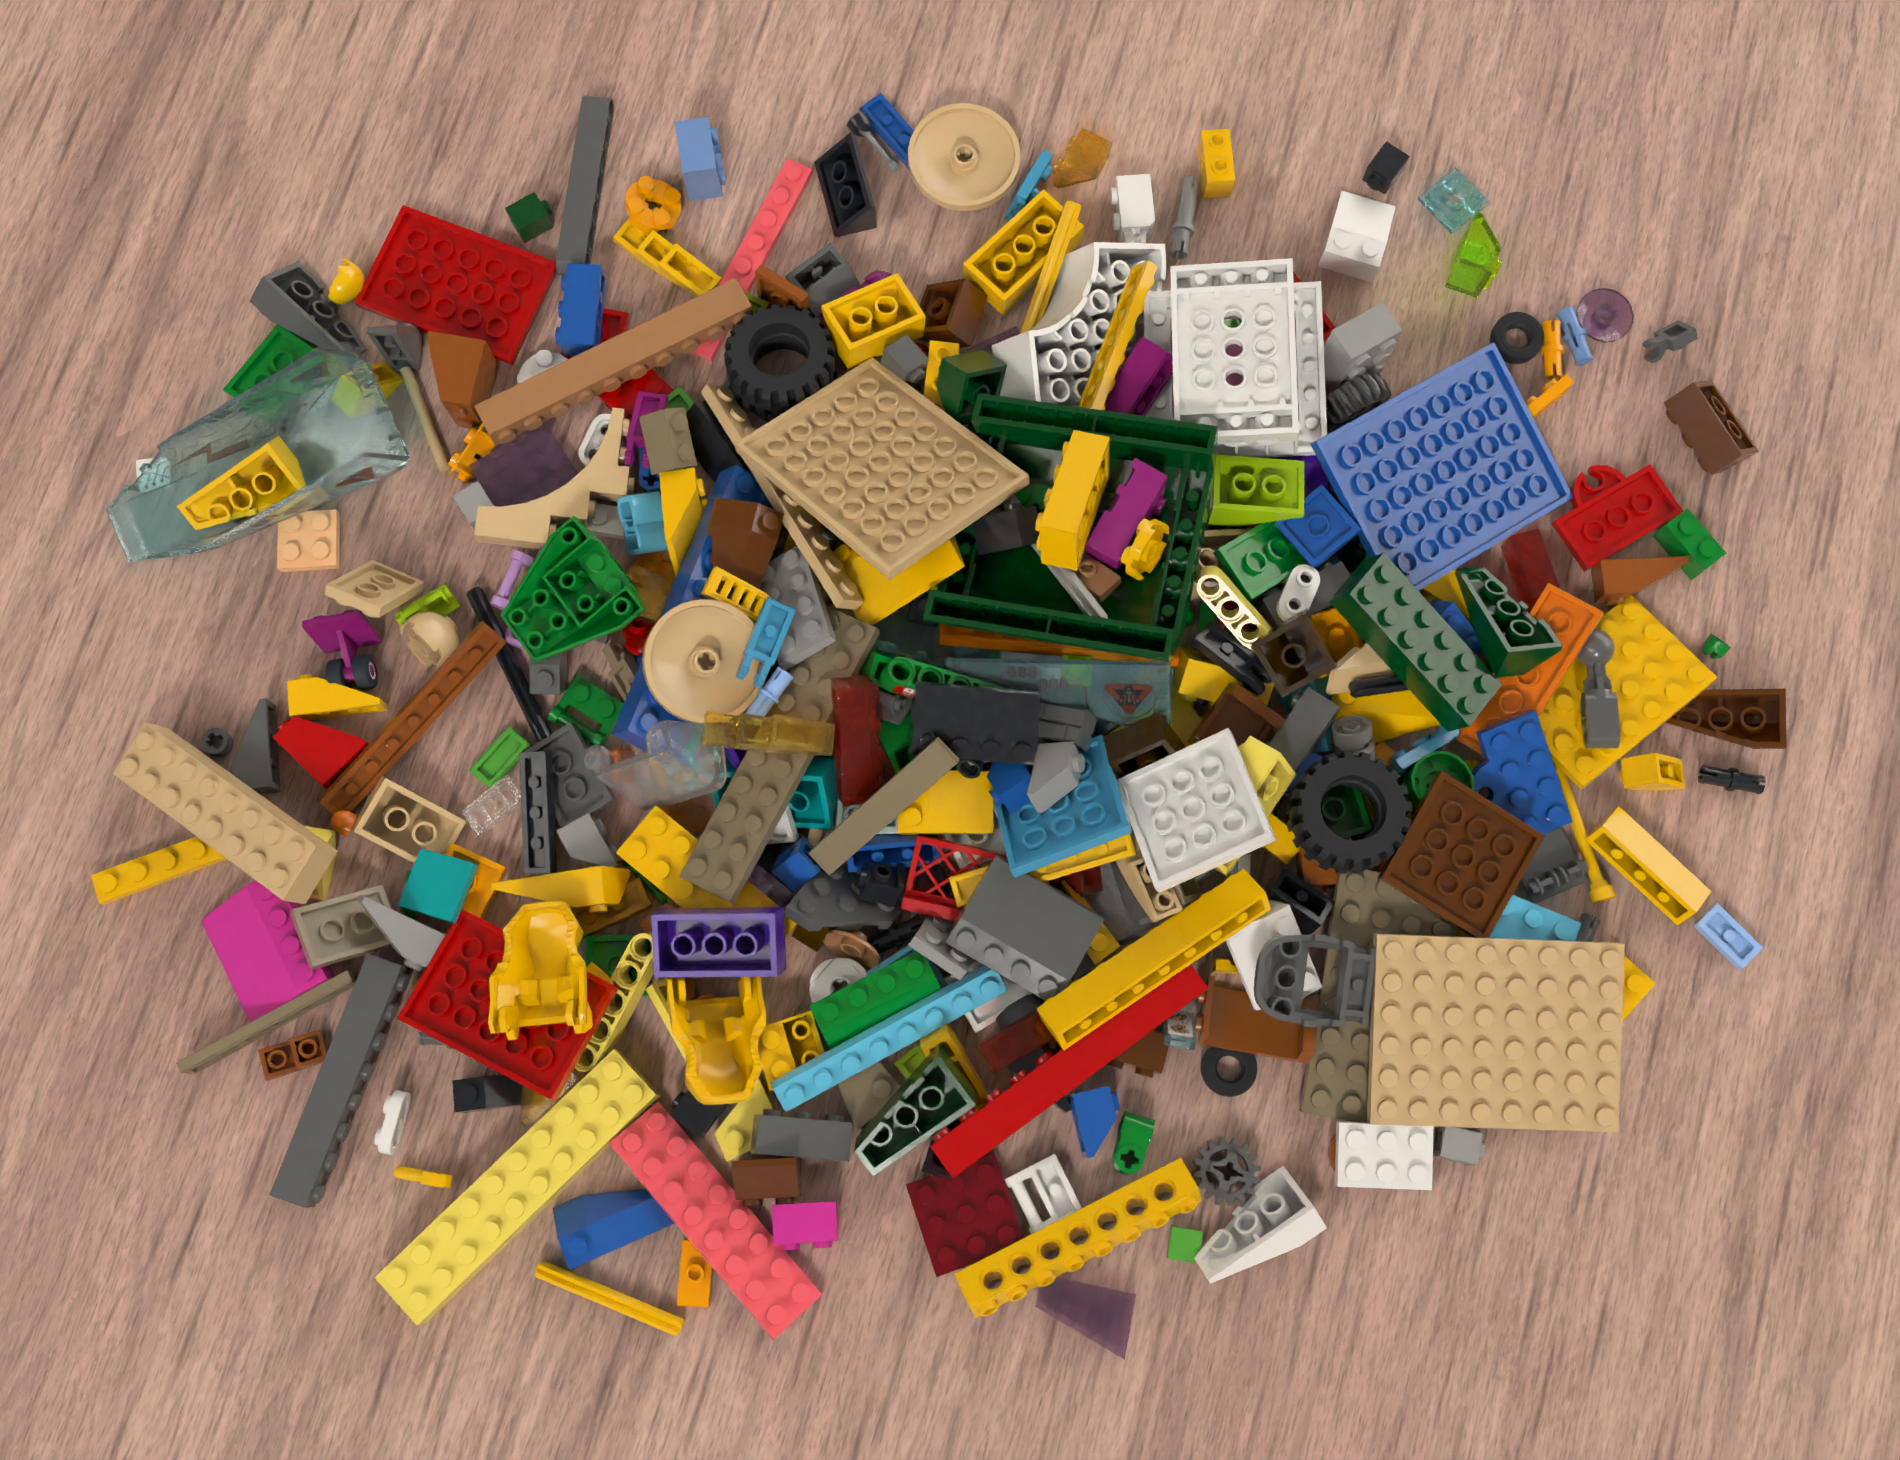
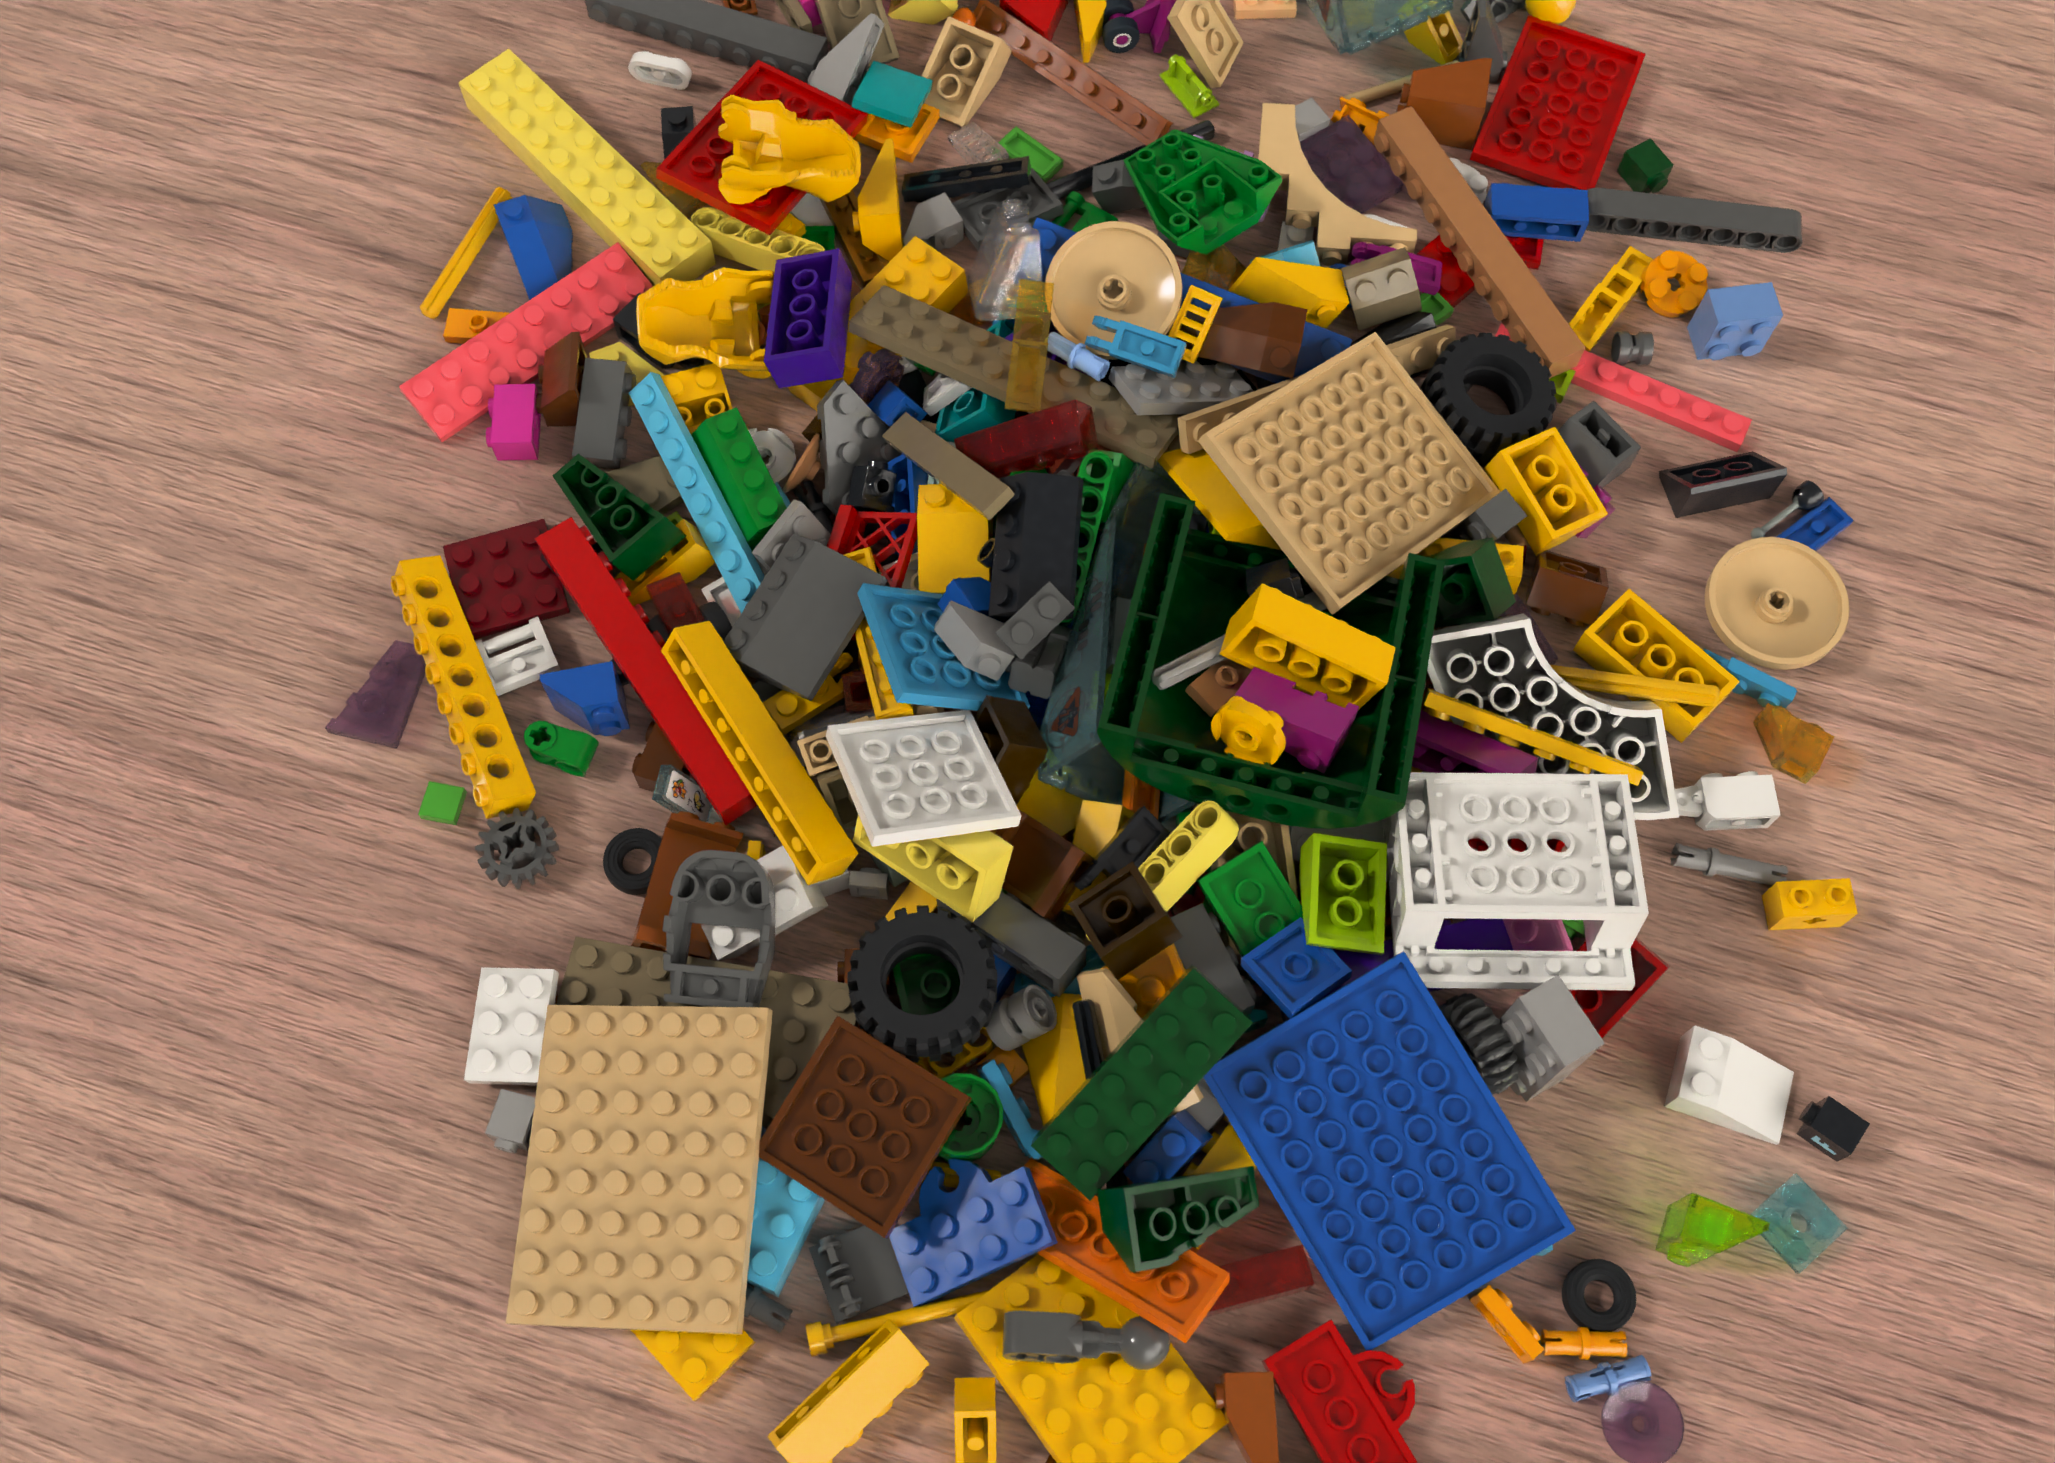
camera: 90 degrees right, 10 degrees down
(424, 1177) = (601, 97): yellow bar -> none
(431, 637) = (1159, 84): tan cylinder -> none
(718, 244) = (1632, 348): none -> dark grey wheel
(779, 291) = (1574, 395): dark orange tile -> none
(1048, 721) = (1035, 620): none -> dark grey plate
(1266, 1226) = (449, 894): white wedge -> none
(1298, 591) = (1207, 944): white plate -> none
(1306, 902) = (826, 939): black brick -> none

